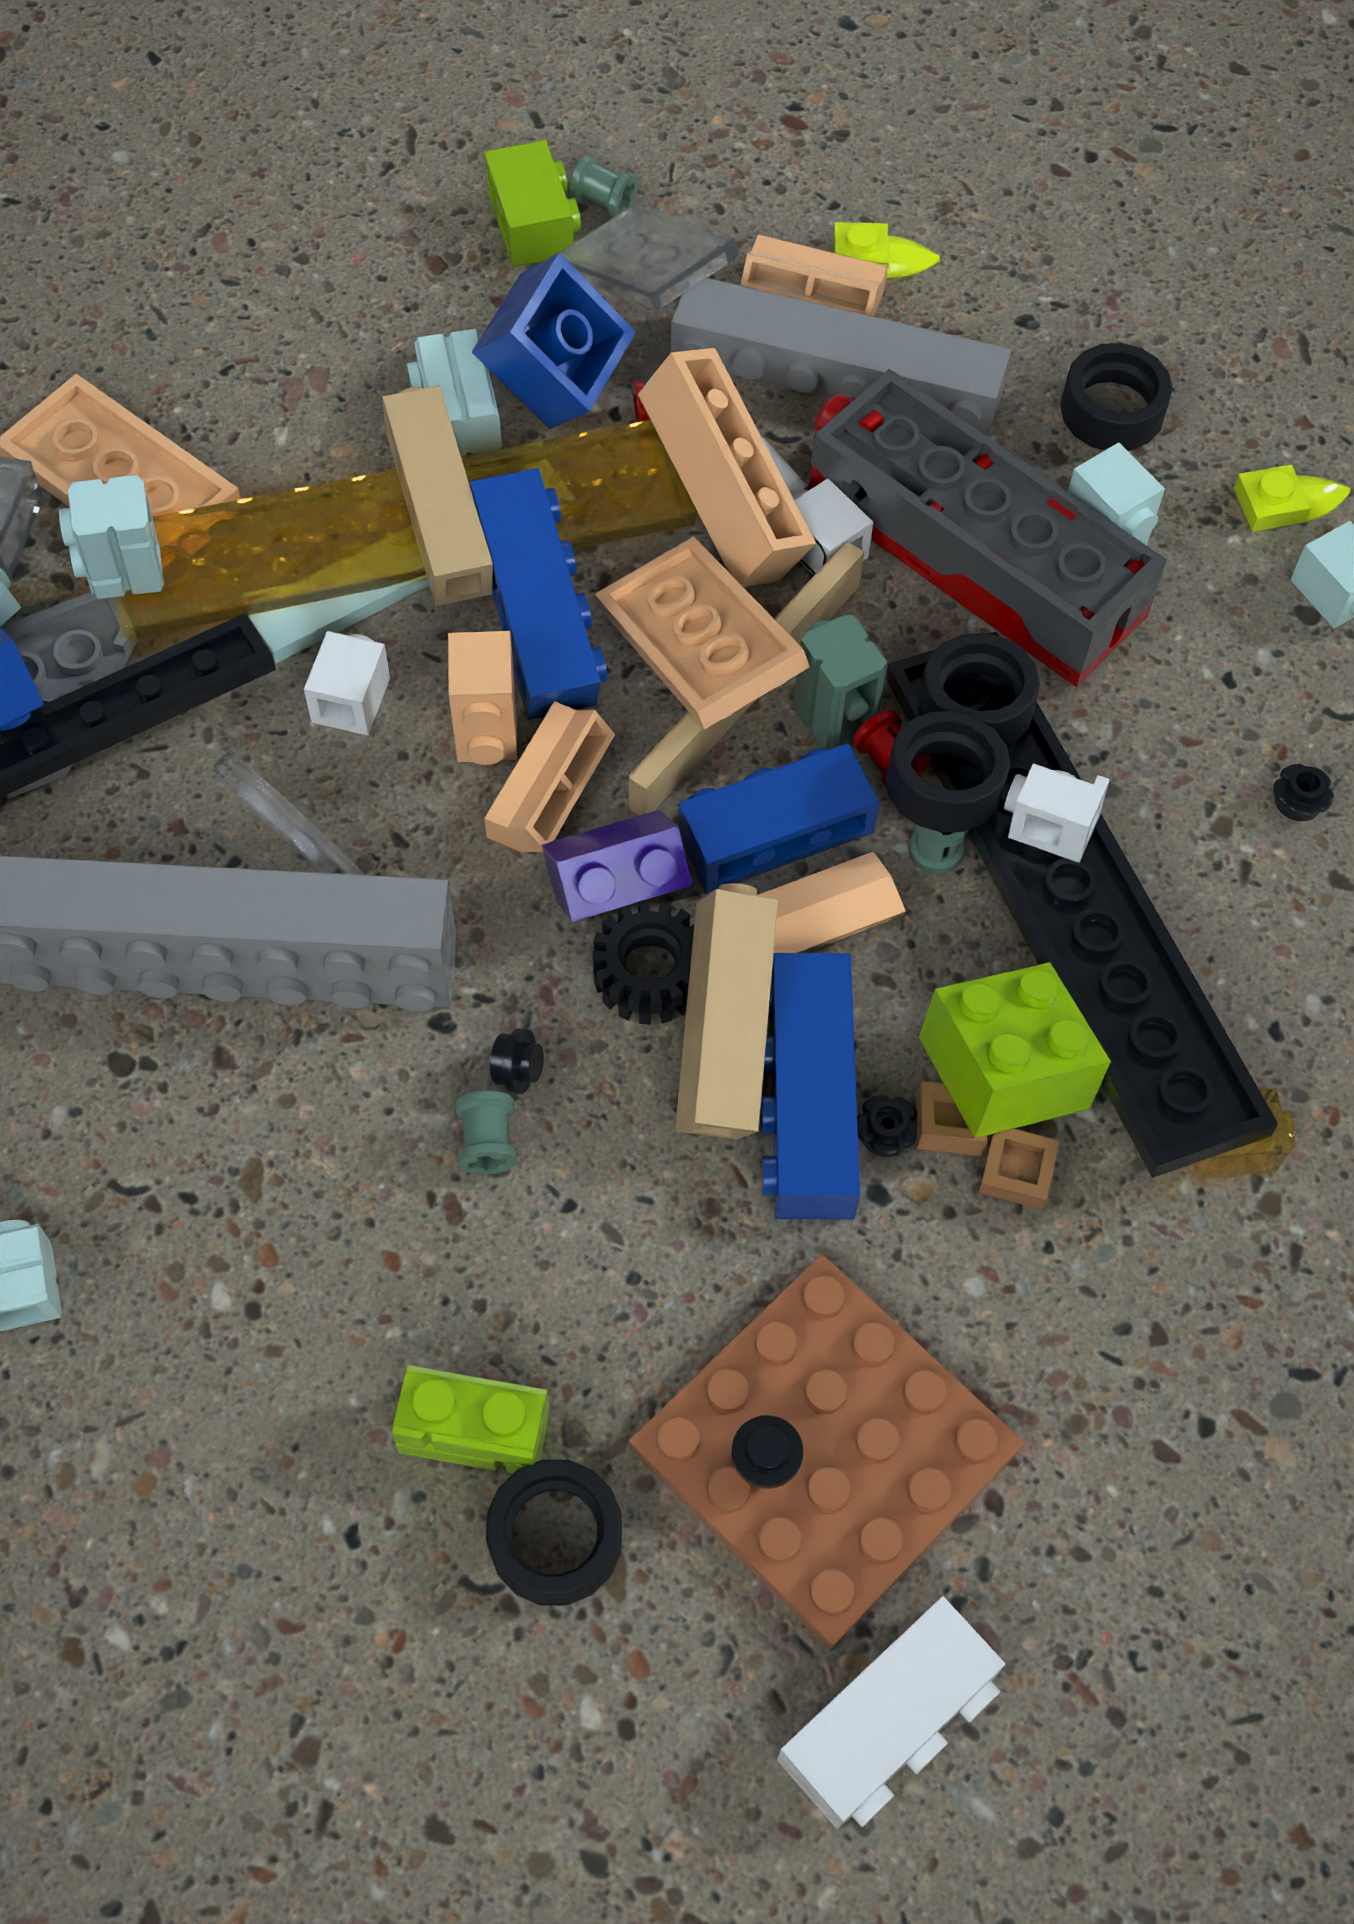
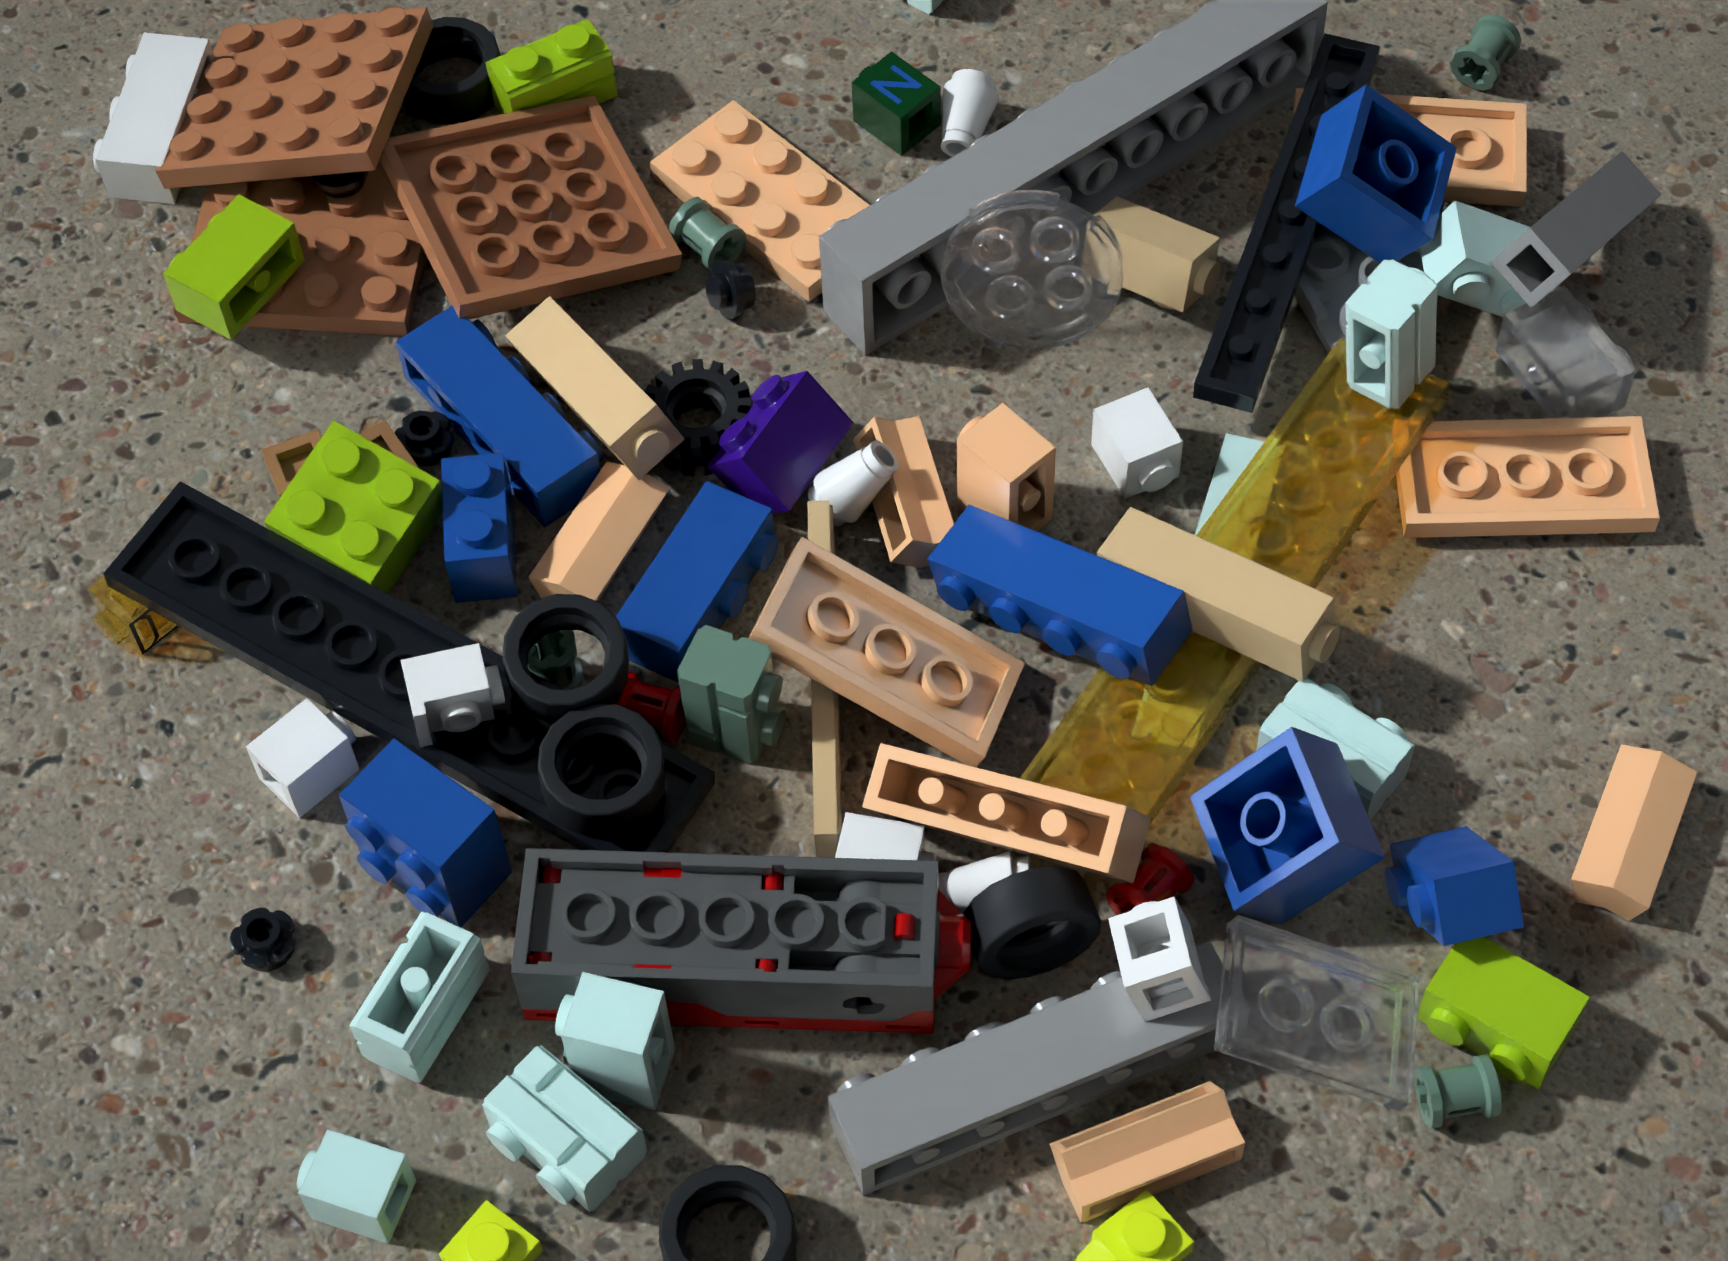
camera: 145 degrees right, 5 degrees down
(148, 1084) = (966, 109): none -> white cone
(166, 806) = (1162, 255): none -> tan brick
(197, 1138) = (896, 103): none -> dark green brick
(334, 236) = (1632, 831): none -> light nougat piece
(391, 1146) = (761, 187): none -> light nougat plate
(489, 245) = (1454, 885): none -> blue brick
(589, 792) = (854, 481): none -> white cone
(622, 1276) = (528, 207): none -> nougat plate
(725, 303) = (1158, 959): none -> white brick
(742, 1584) = (298, 98): none -> nougat plate
(788, 388) = (1032, 922): none -> black tyre
(897, 995) = (479, 527): none -> blue brick
(954, 1395) = (234, 266): none -> lime brick
(1145, 738) = (425, 834): none -> blue brick
(1188, 521) = (563, 1130): none -> light aqua brick
(1193, 892) = (304, 756): none -> white brick
(1222, 644) = (420, 997): none -> light aqua brick

